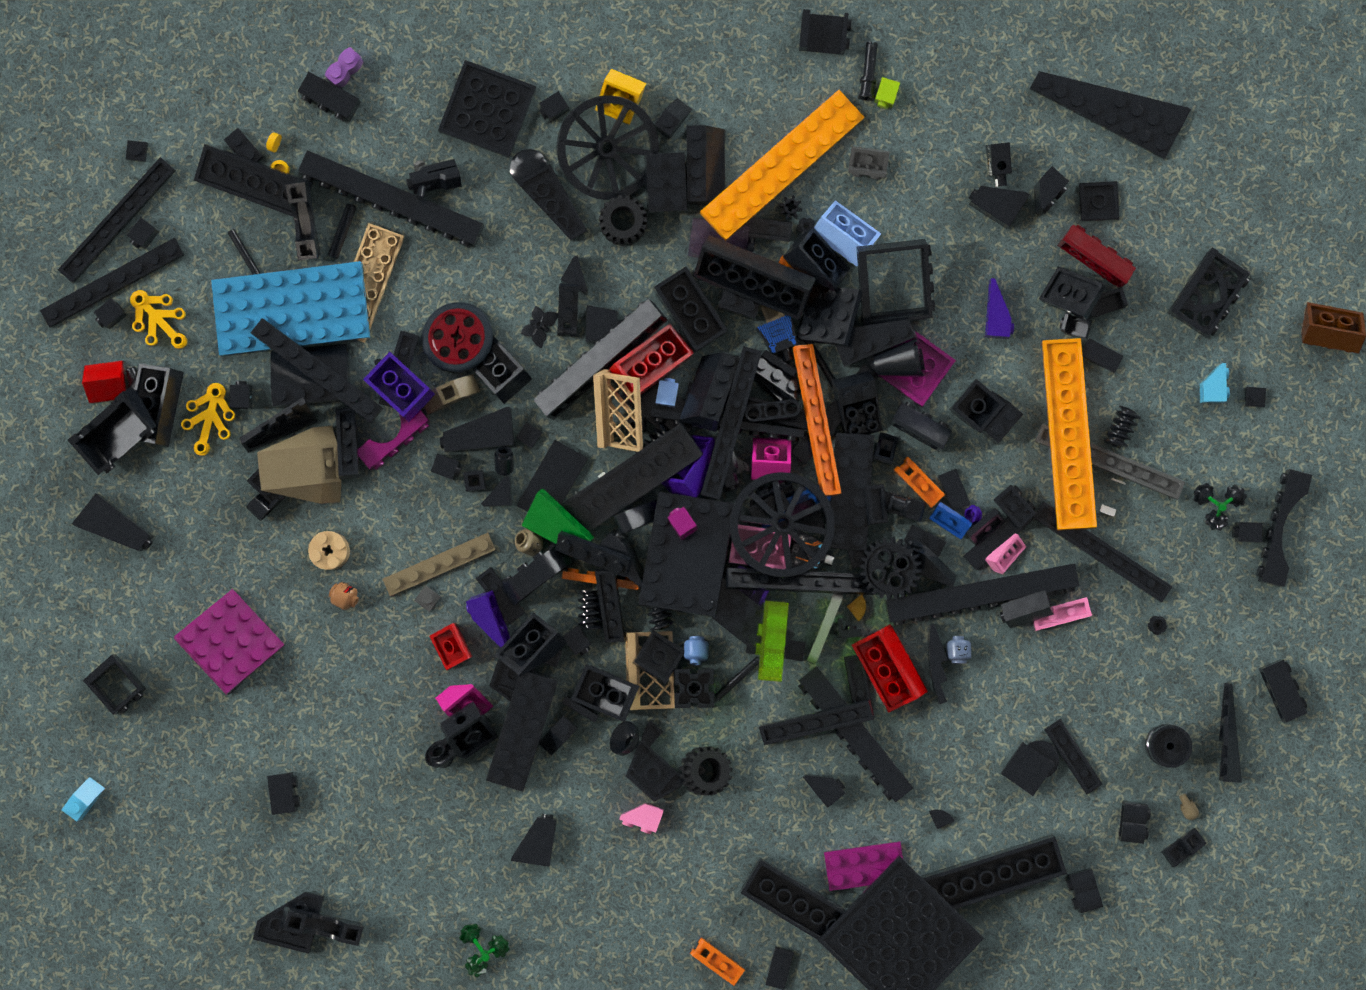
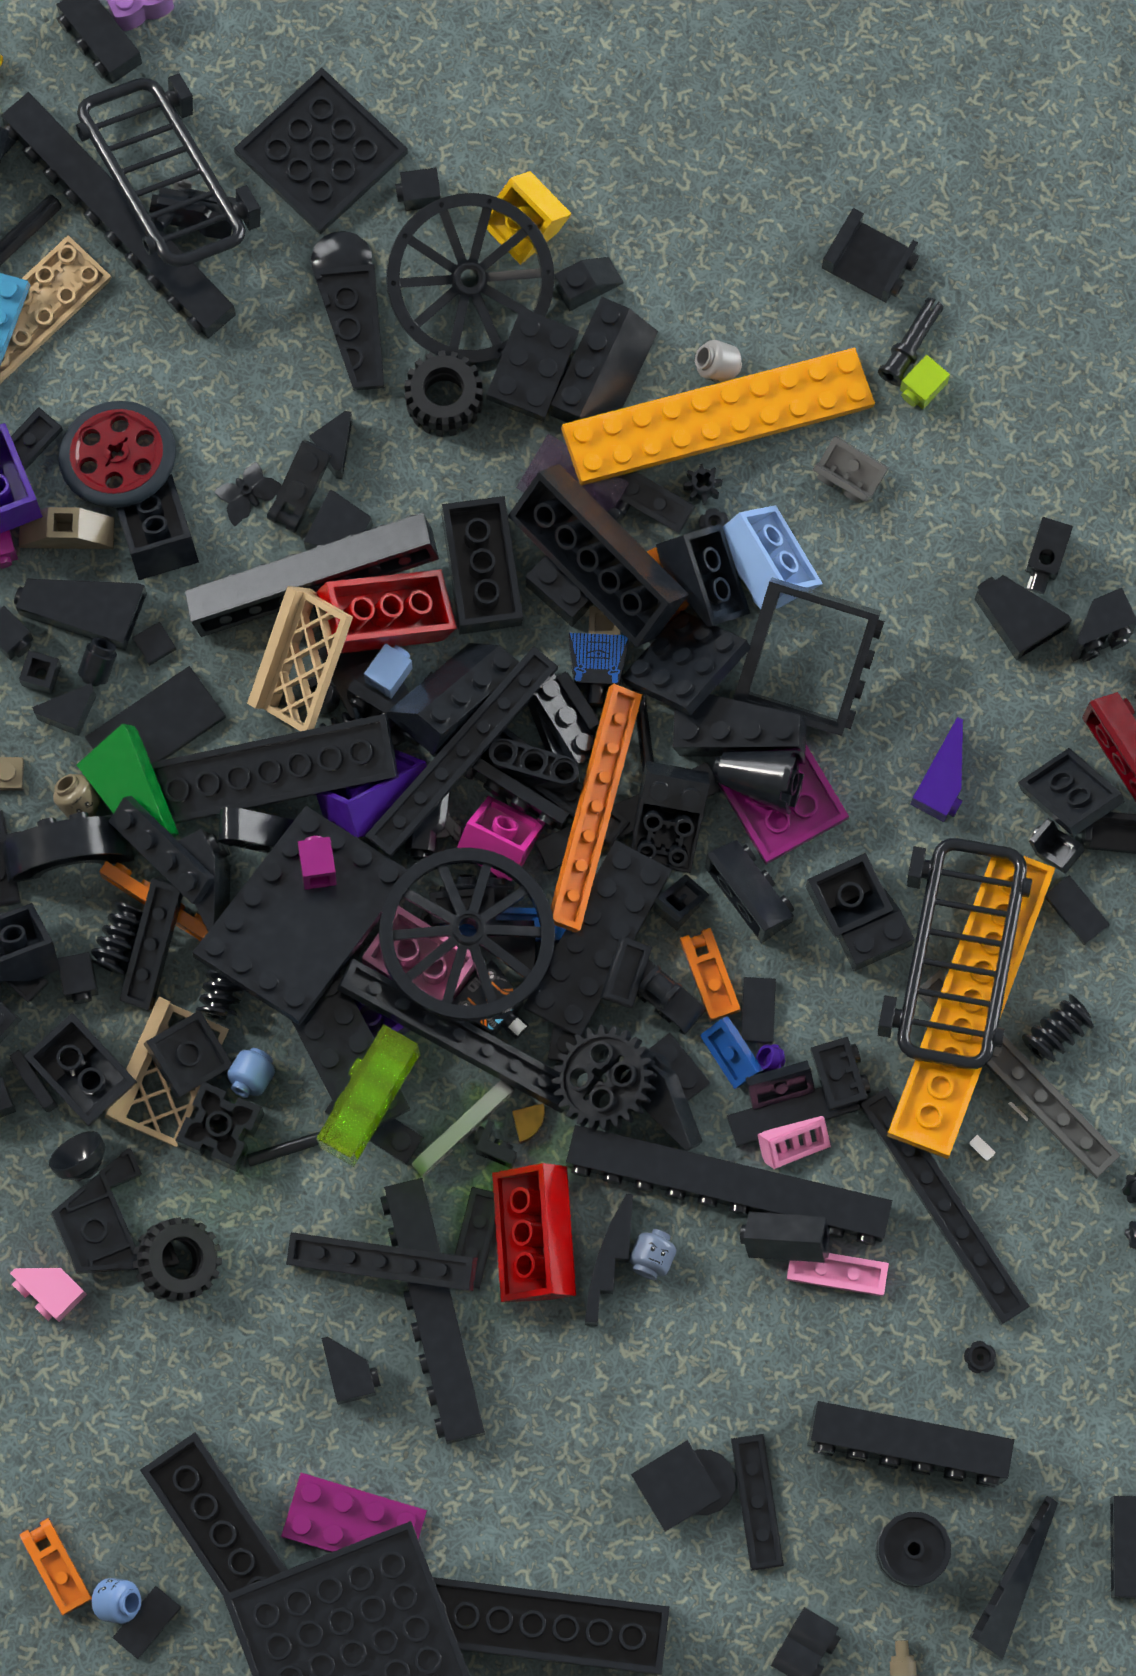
camera: 20 degrees right, 10 degrees down
(392, 113) = (181, 98): none -> black bar
(759, 965) = (116, 1600): none -> medium blue head
(767, 132) = (718, 361): none -> light grey head
(940, 818) = (507, 1503): black tile -> none
(1038, 462) = (904, 1018): none -> black bar
(1142, 690) = (911, 1443): none -> black brick

